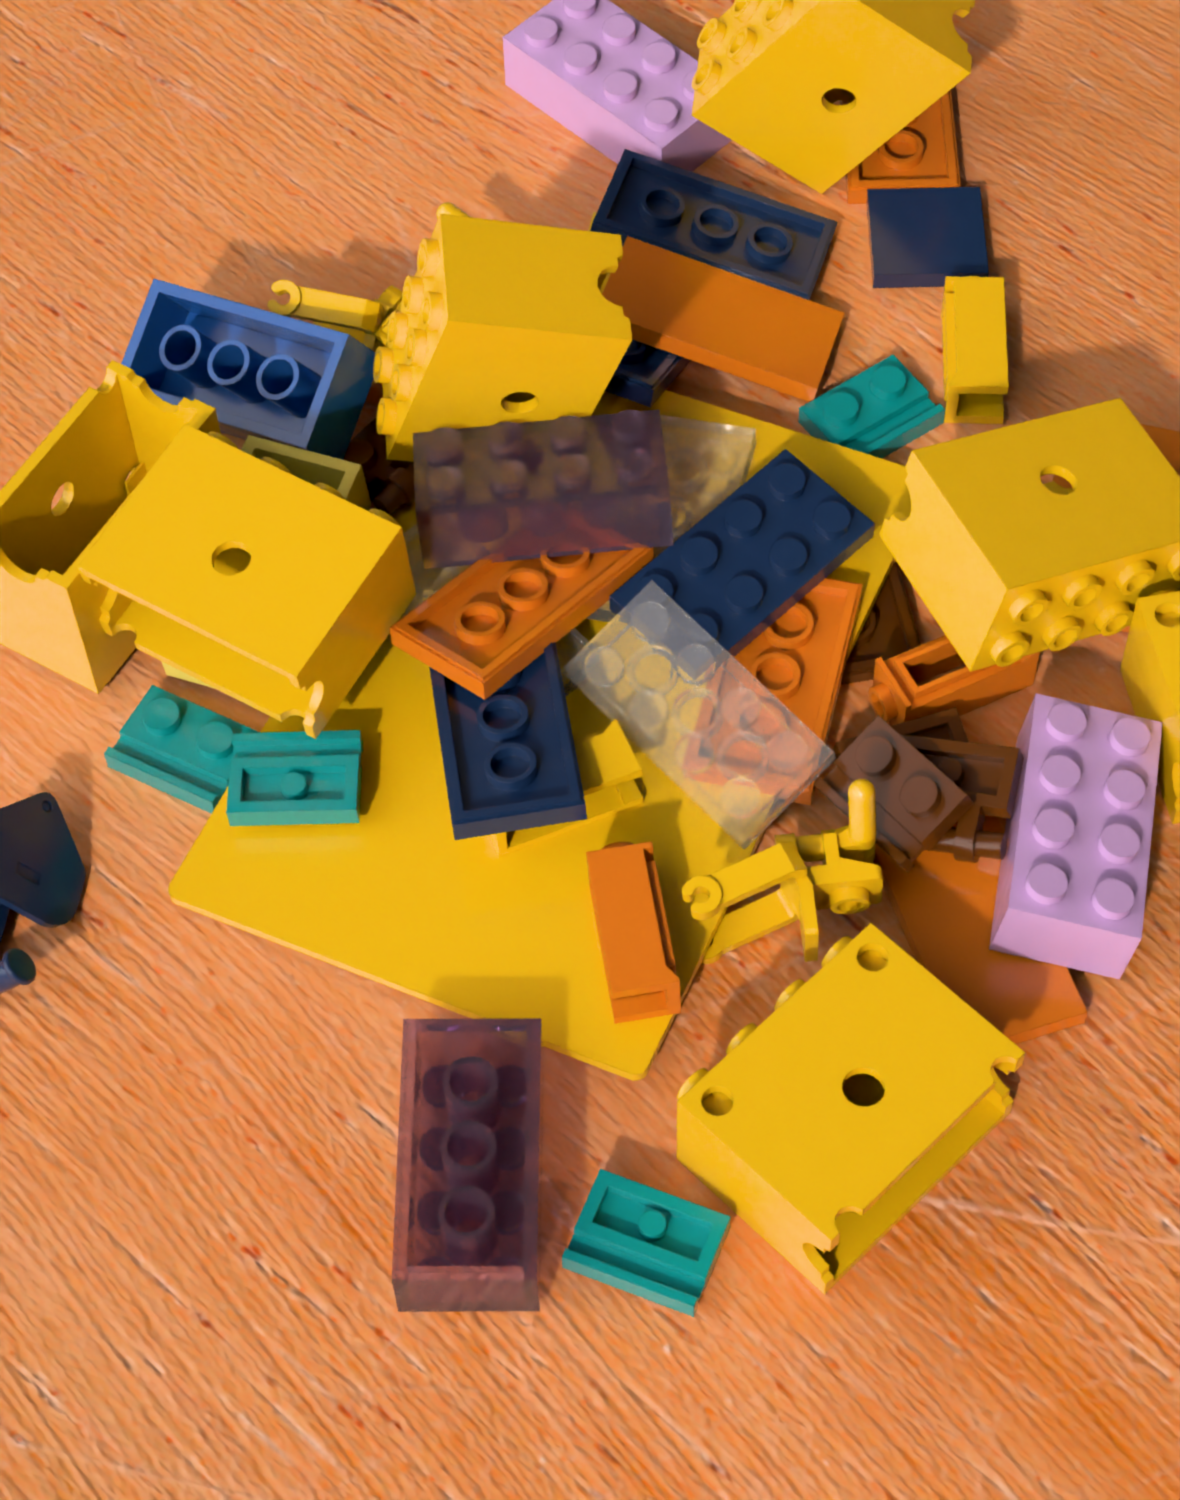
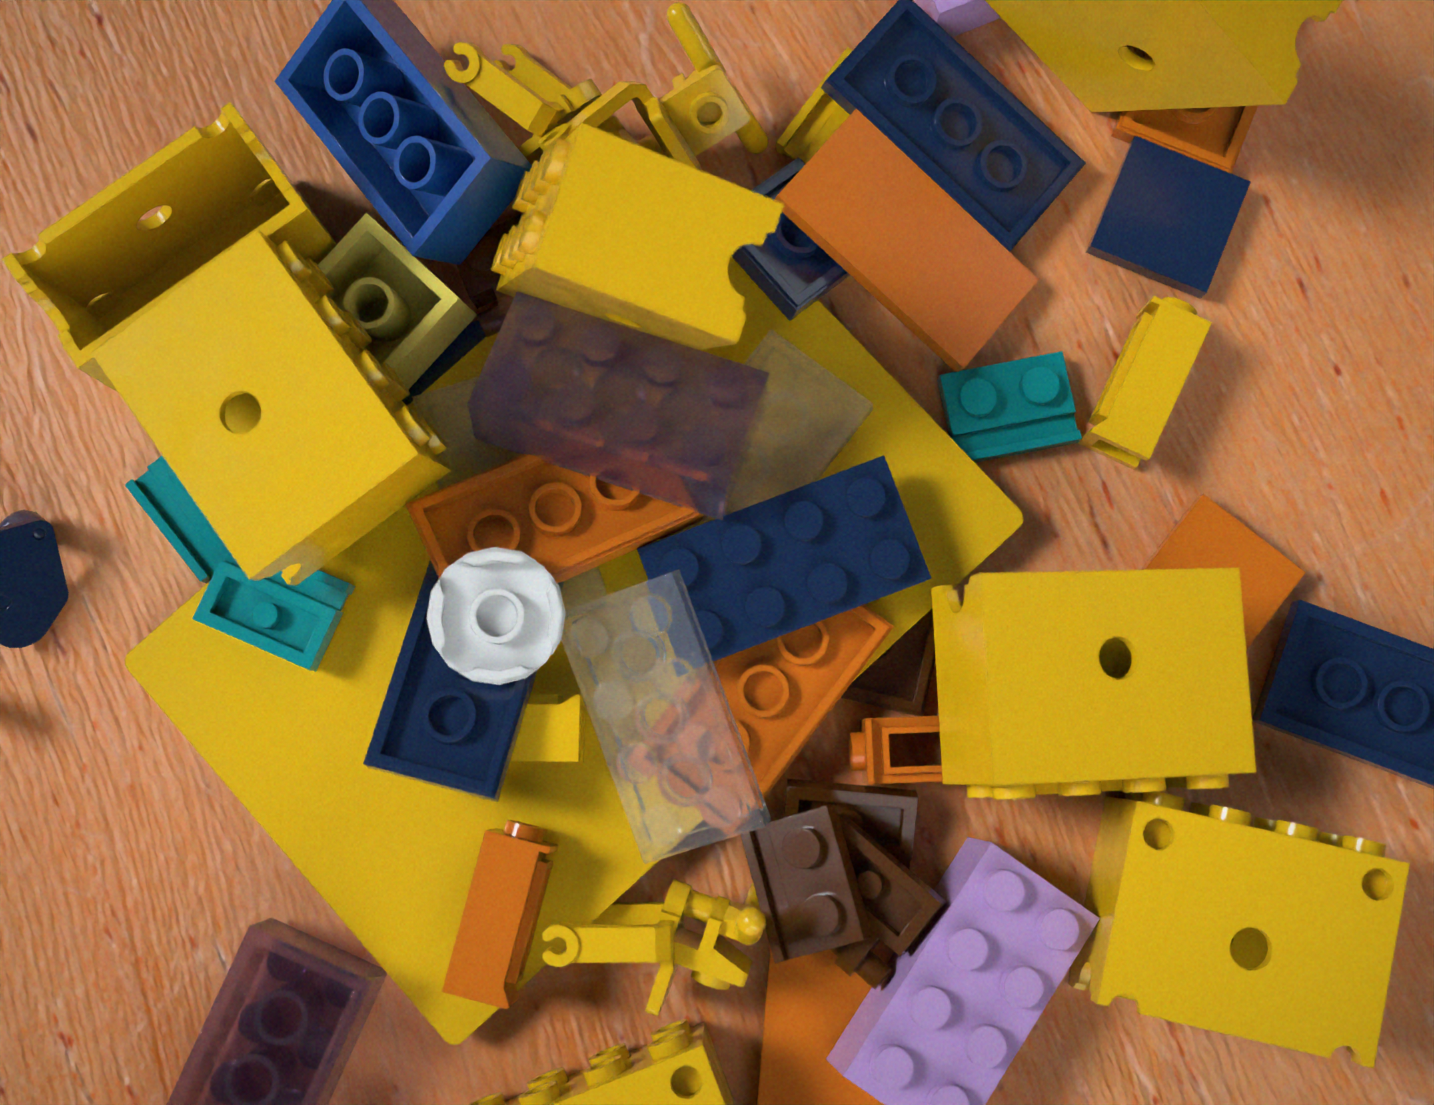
camera: 25 degrees right, 25 degrees up
(515, 665) = (495, 615): none -> white tile

